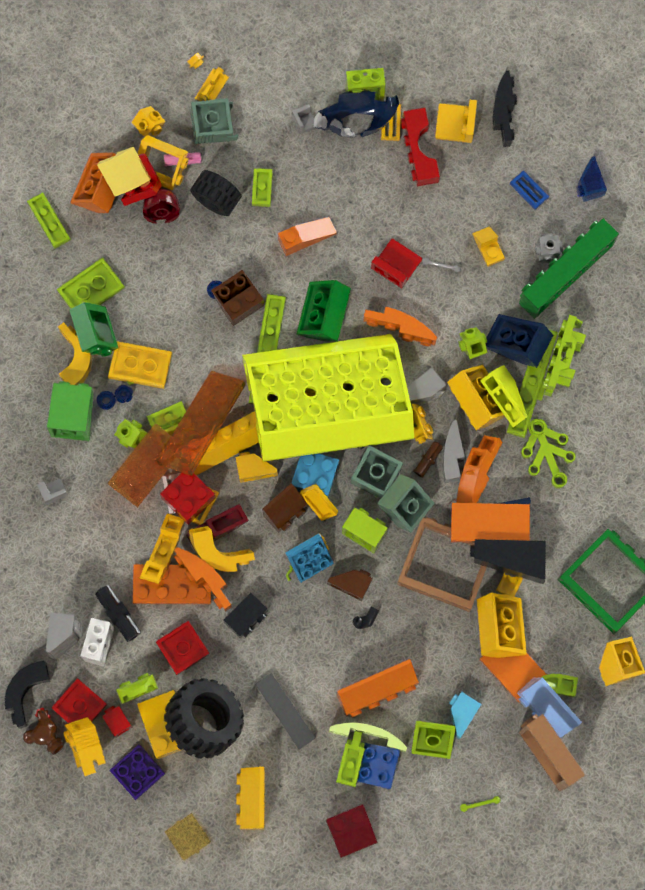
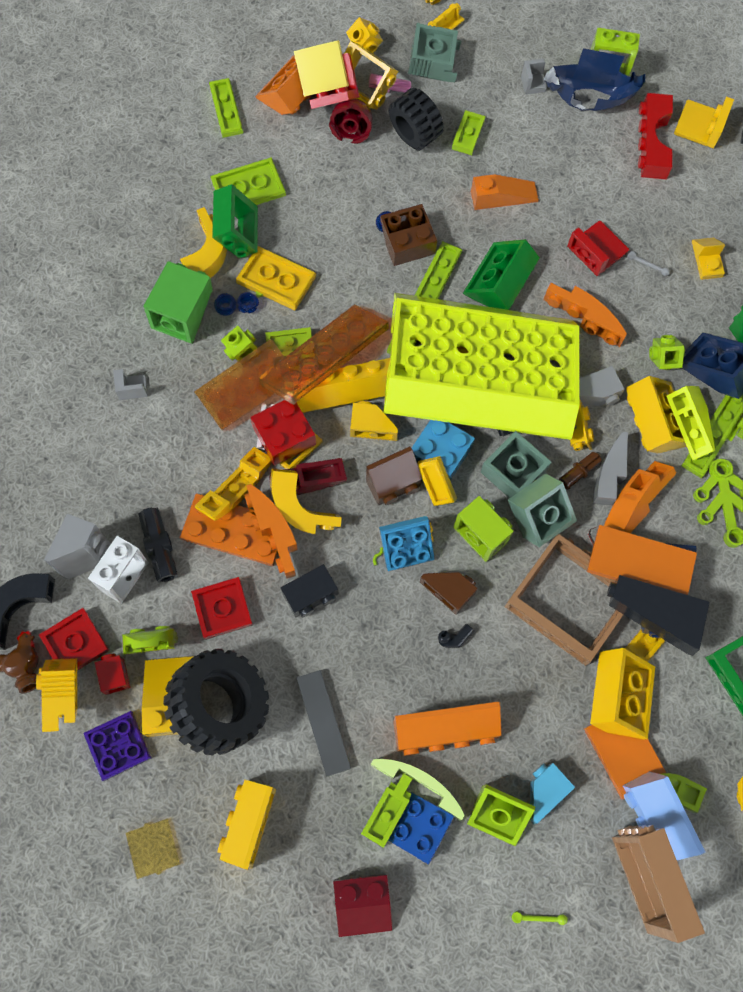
camera: 15 degrees right, 5 degrees down
(390, 137) = (624, 121): yellow tile -> none

